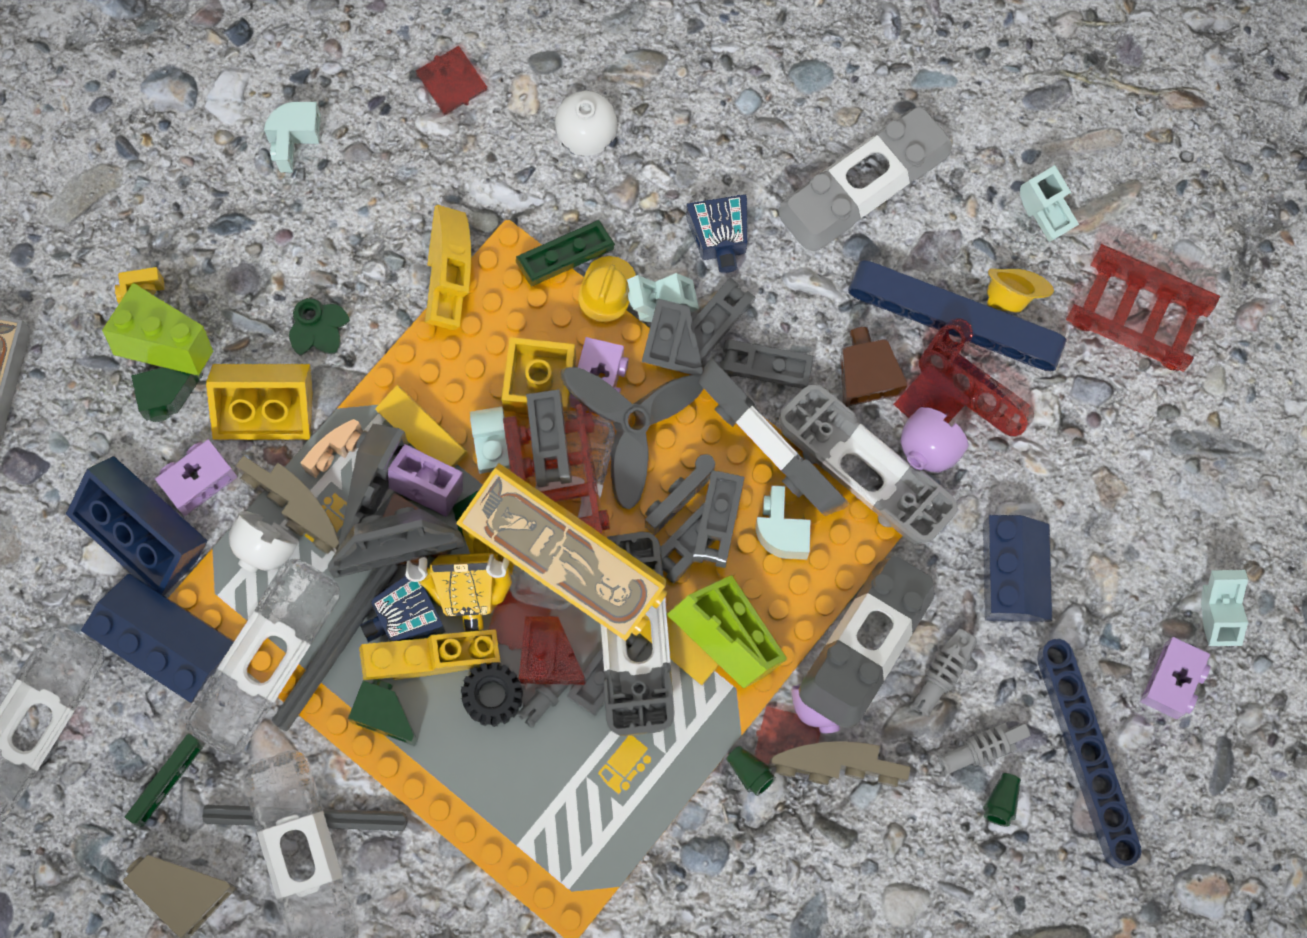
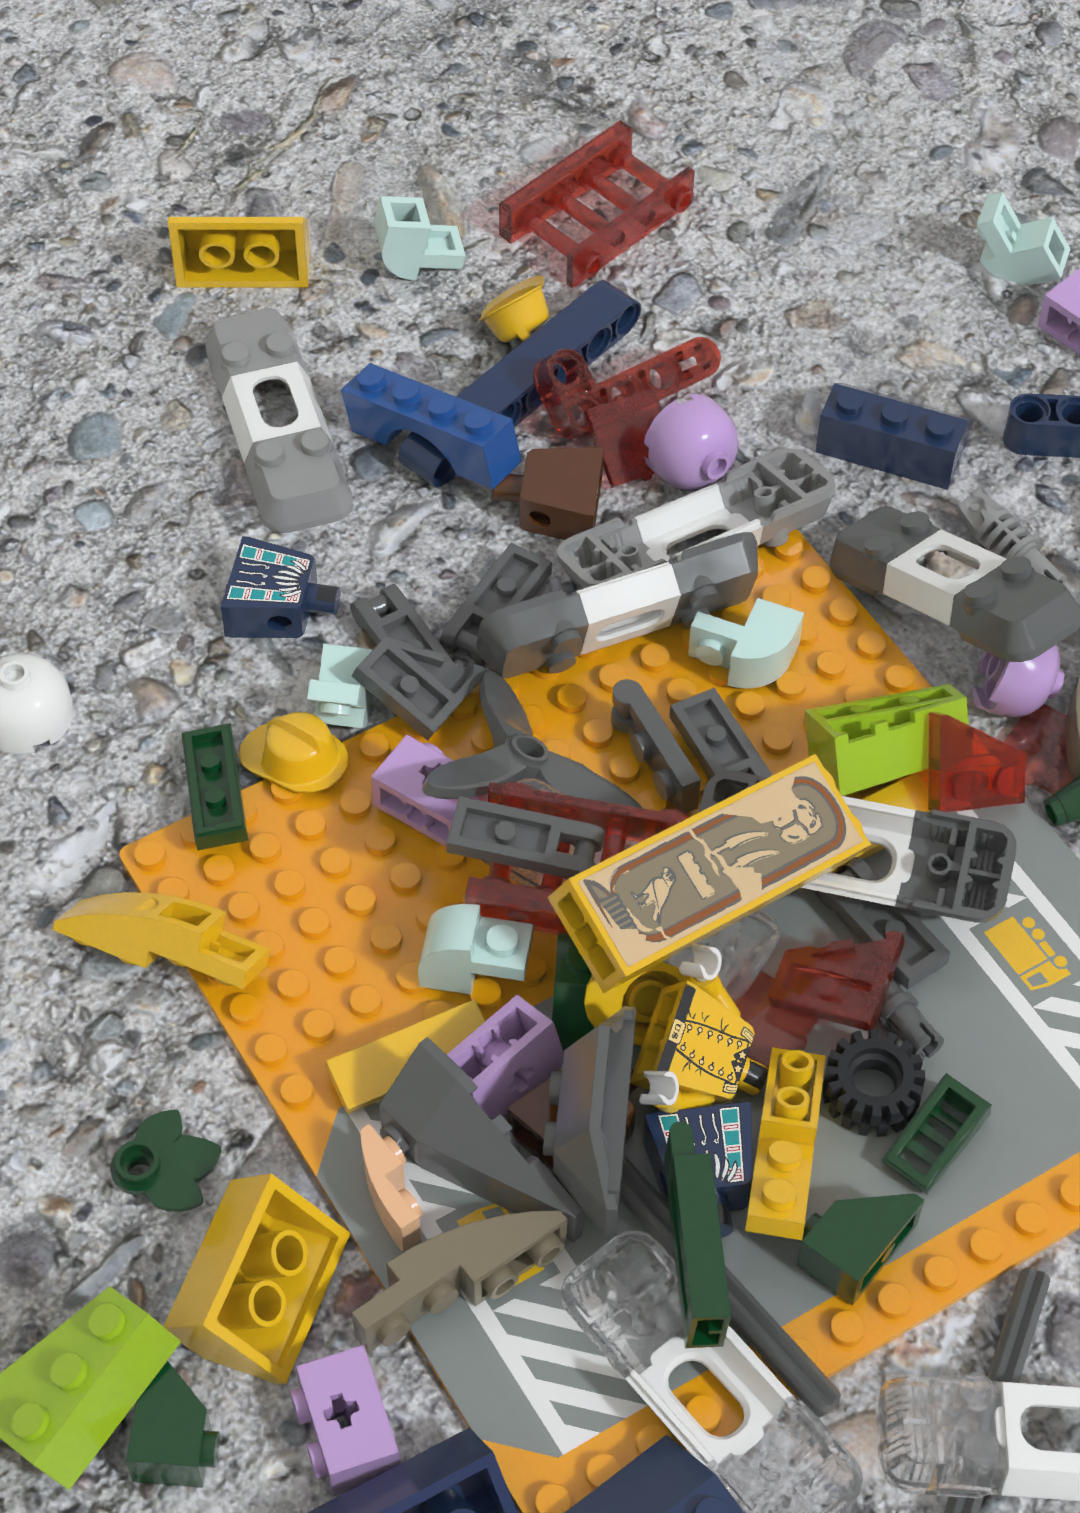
camera: 70 degrees left, 20 degrees down
(259, 543) = (512, 1339): white cylinder -> none
(332, 619) = (696, 1241): none -> dark green hinge
(499, 749) = (963, 1100): none -> dark green slope
(535, 368) = (399, 859): yellow brick -> none
(718, 517) = (716, 700): dark grey plate -> none
(730, 692) = (971, 768): none -> clear red wing
(881, 272) = (472, 438): none -> blue arch
(995, 96) = (240, 252): none -> yellow slope

